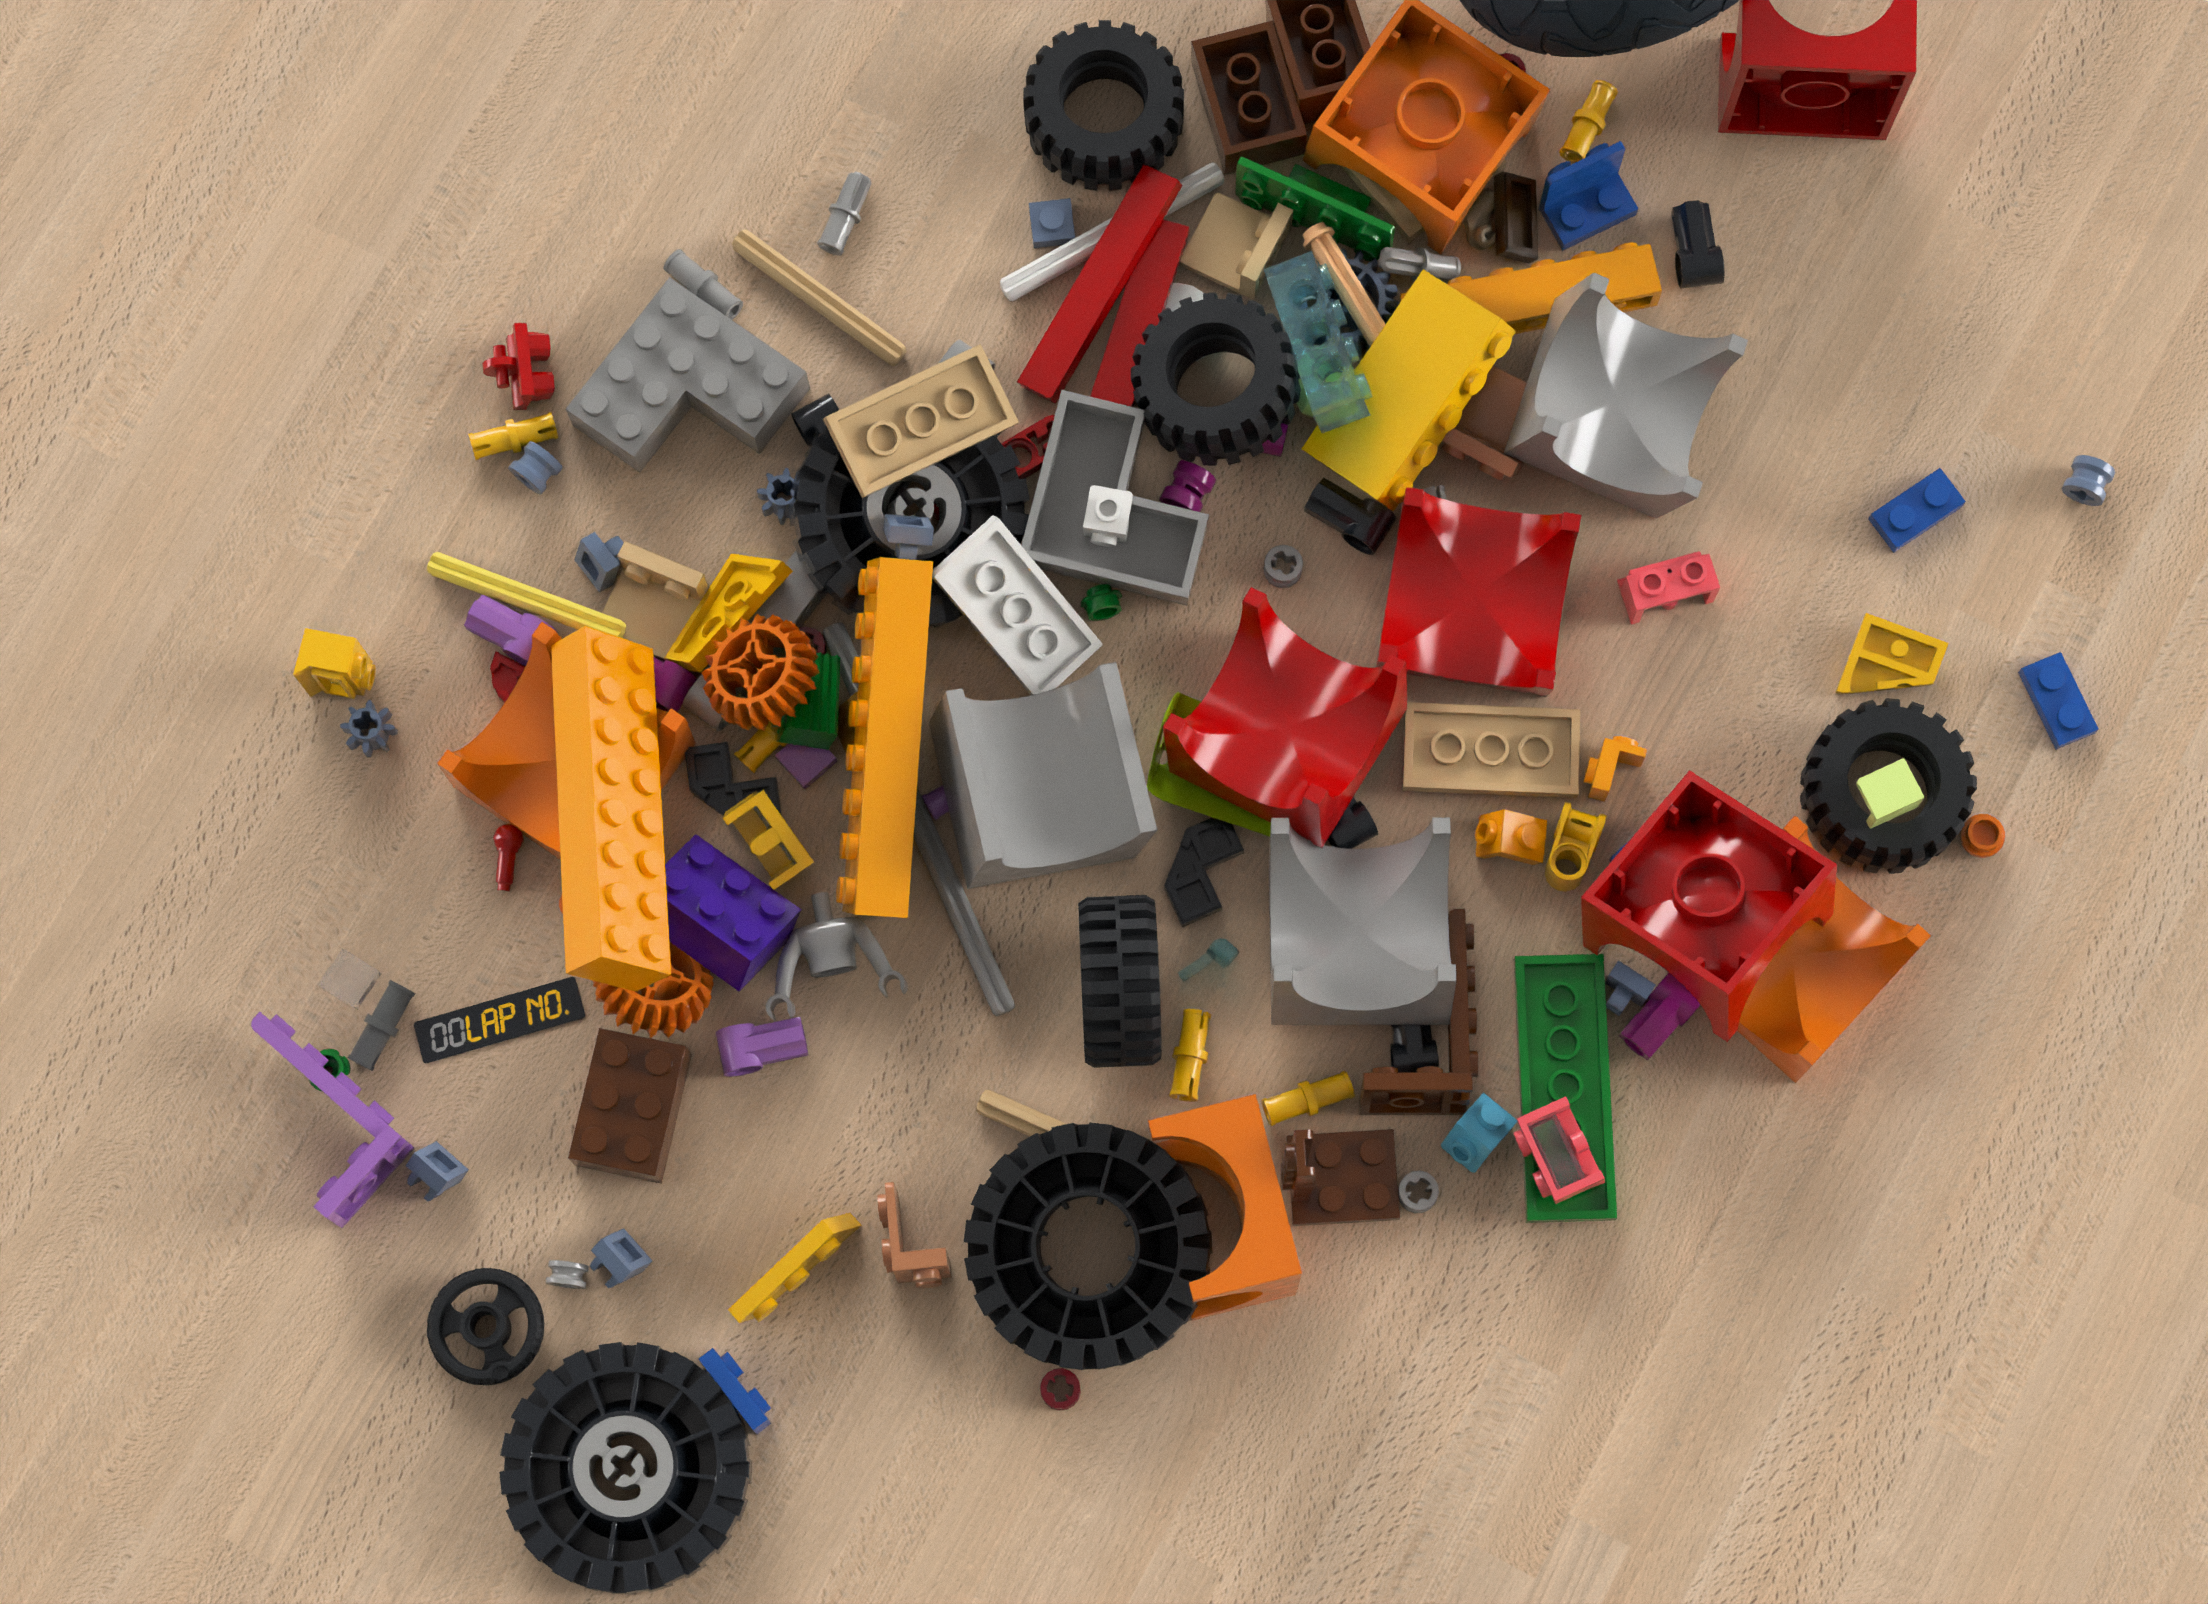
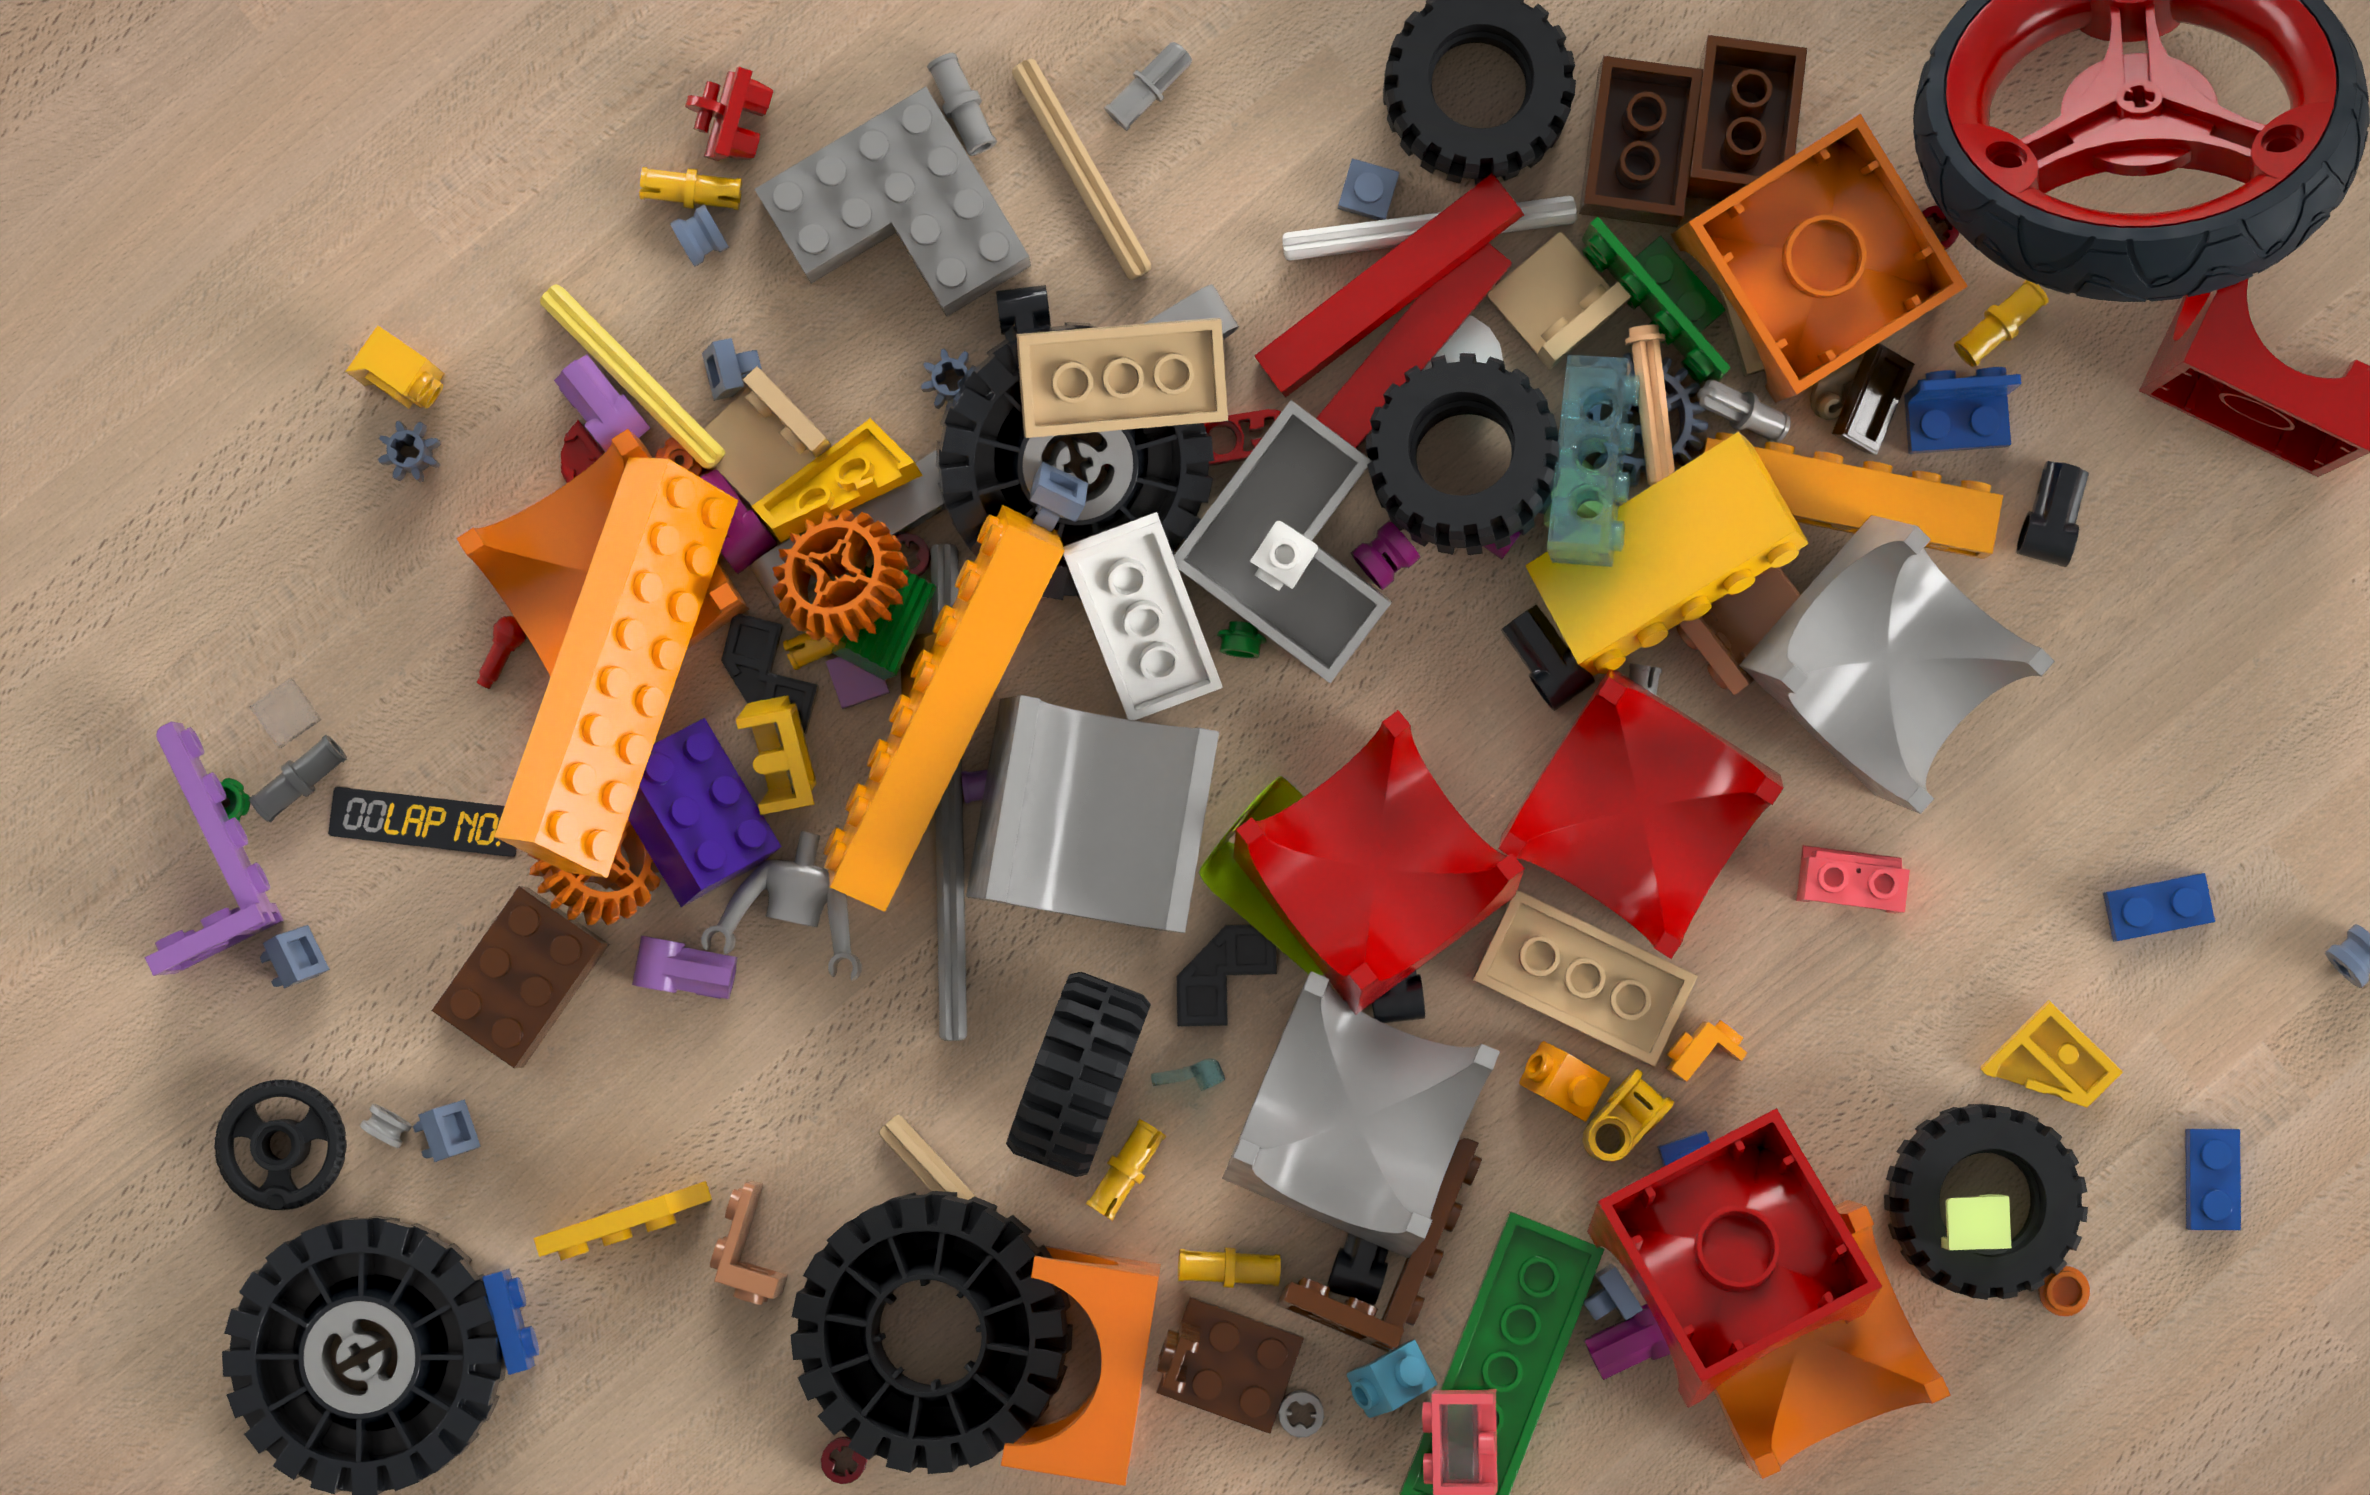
camera: 25 degrees right, 10 degrees up
(1277, 577) = (1440, 691): light grey bush -> none

